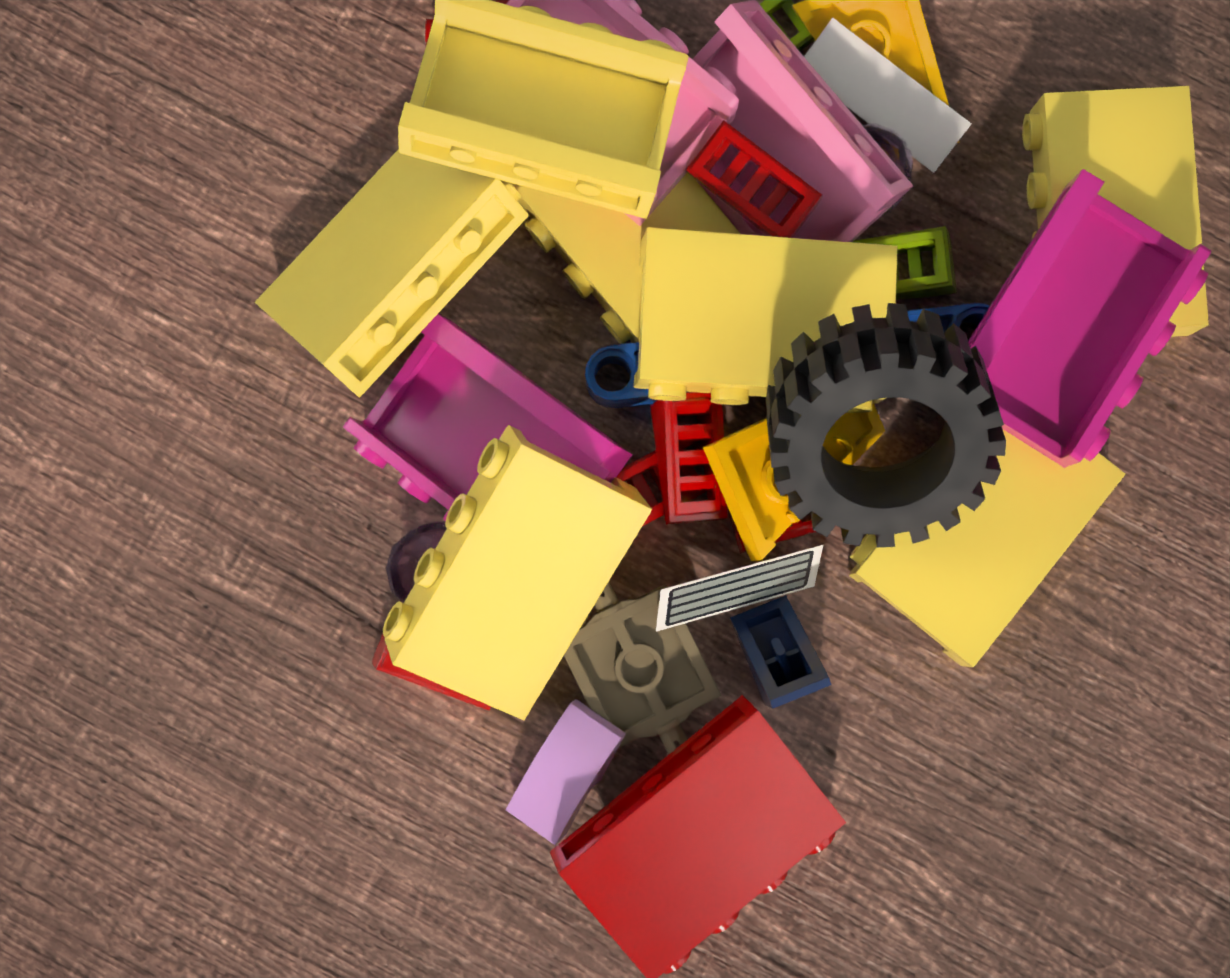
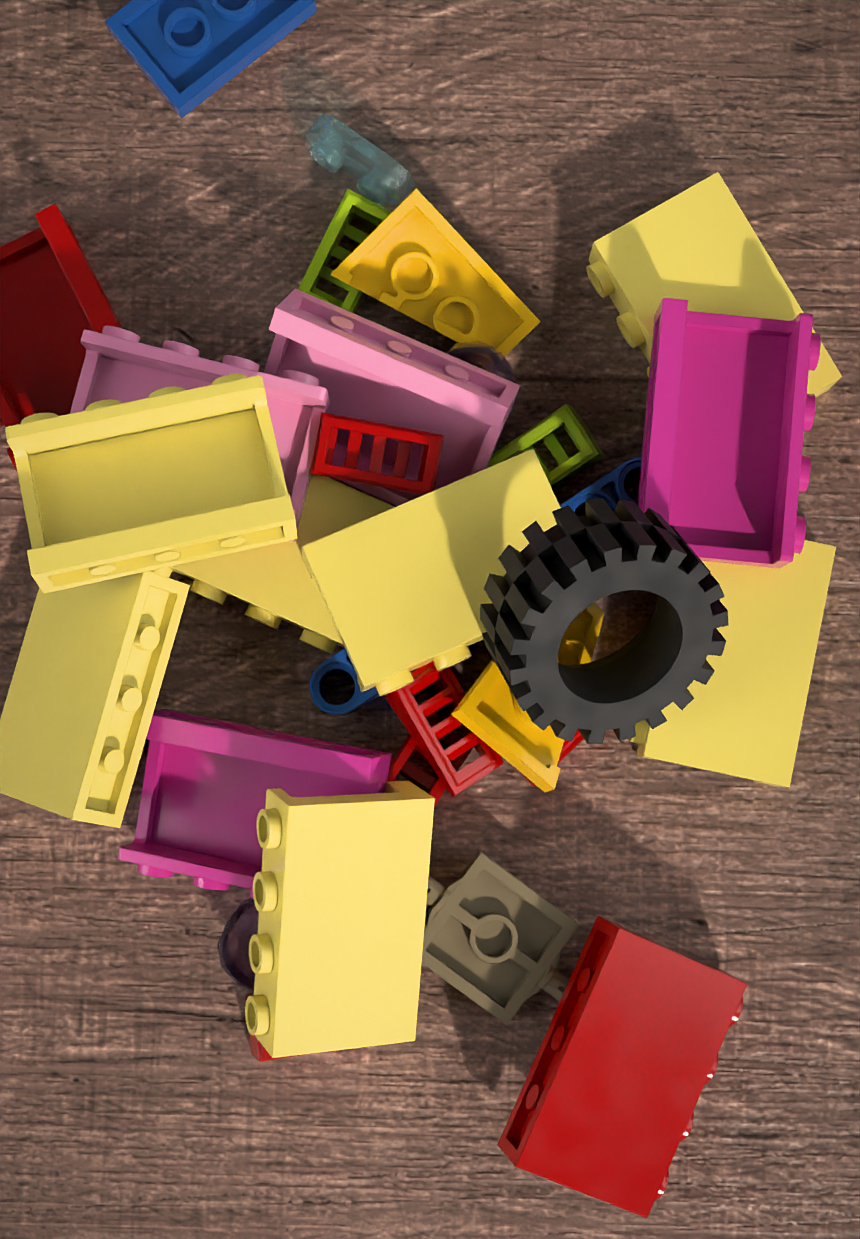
camera: 25 degrees left, 0 degrees up
(565, 771) = (475, 1065): lavender slope -> none
(738, 587) = (545, 822): sticker -> none
(779, 653) = (612, 860): dark blue slope -> none
(886, 94) = (453, 312): white sticker -> none

